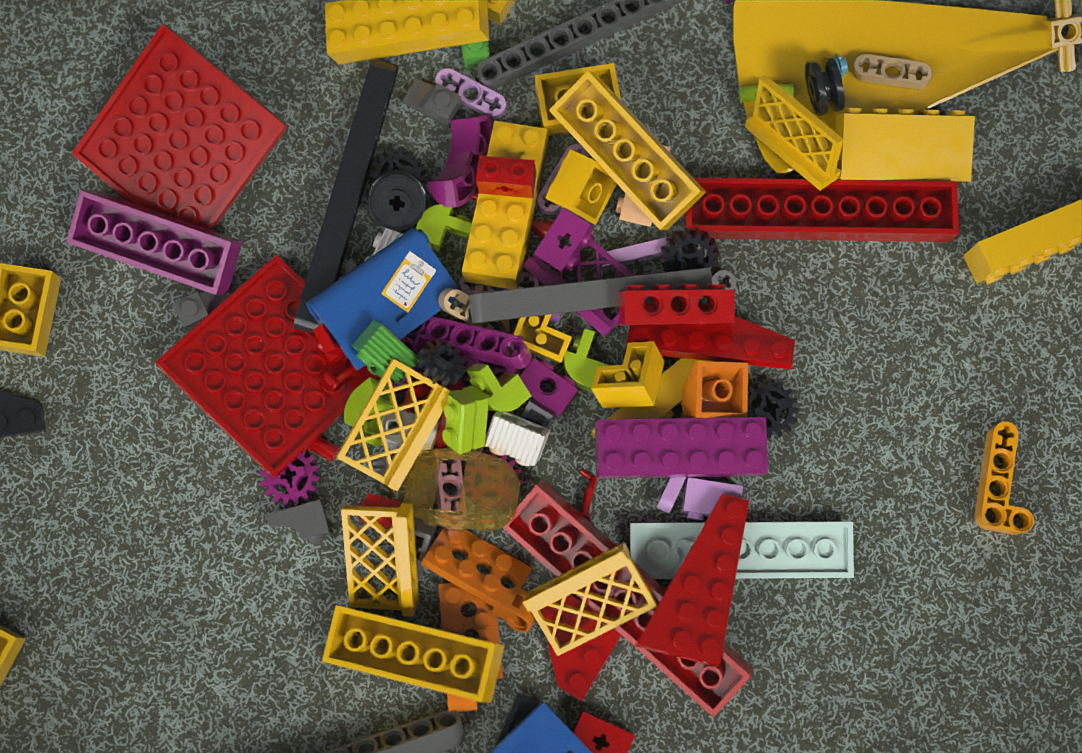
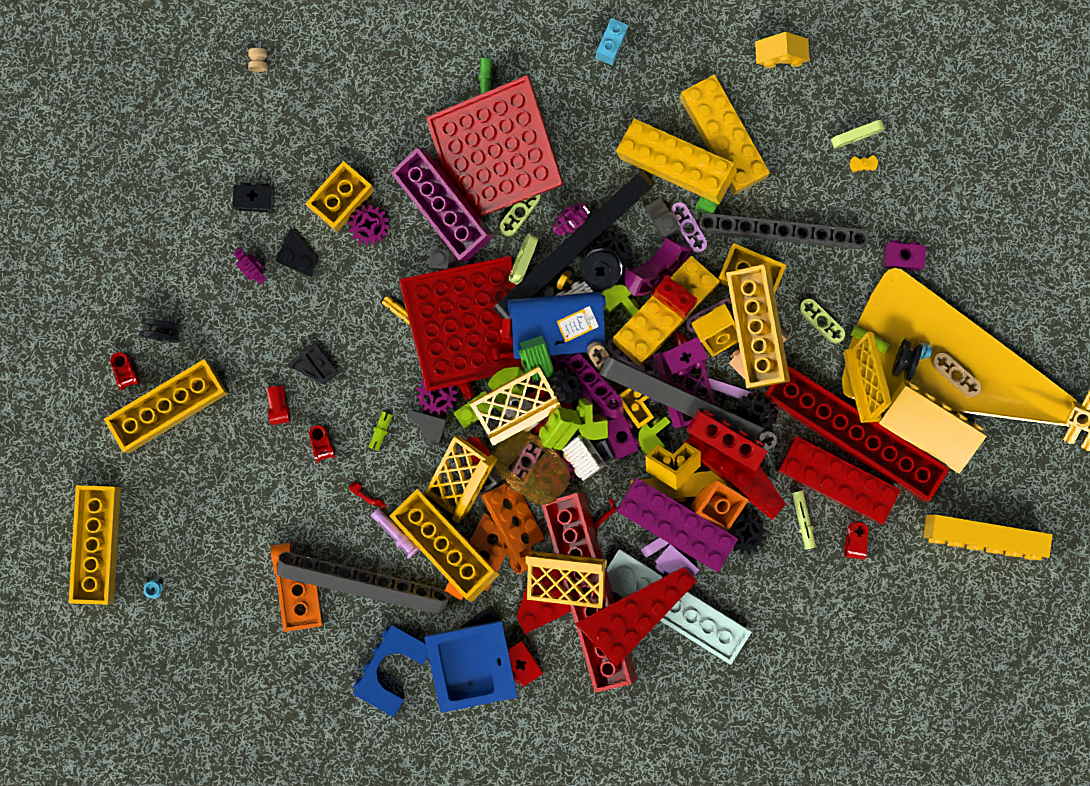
camera: 35 degrees right, 5 degrees up
(86, 316) = (376, 223): none -> magenta gear
(102, 619) = (278, 410): none -> red piece
(114, 534) = (314, 364): none -> black wing
(115, 63) = (485, 75): none -> bright green pin
(175, 403) = (396, 308): none -> yellow axle
(183, 627) = (321, 445): none -> red piece
(247, 215) = (515, 226): none -> yellowish green beam
(247, 564) = (380, 431): none -> lime pin
(260, 655) = (355, 488): none -> red piece
(294, 247) = (523, 258): none -> yellowish green beam
(322, 165) = (570, 218): none -> magenta gear
(344, 477) = (466, 414): none -> lime brick
(356, 681) = (400, 538): none -> lavender pin
(360, 242) = (564, 279): none -> yellow piece
(713, 118) = (830, 320): none -> yellowish green beam
(827, 350) = (798, 498): none -> yellowish green pin
(836, 277) = (838, 480): none -> red brick
(905, 338) = (855, 543): none -> red piece
(1003, 479) = (859, 663): light orange beam -> none

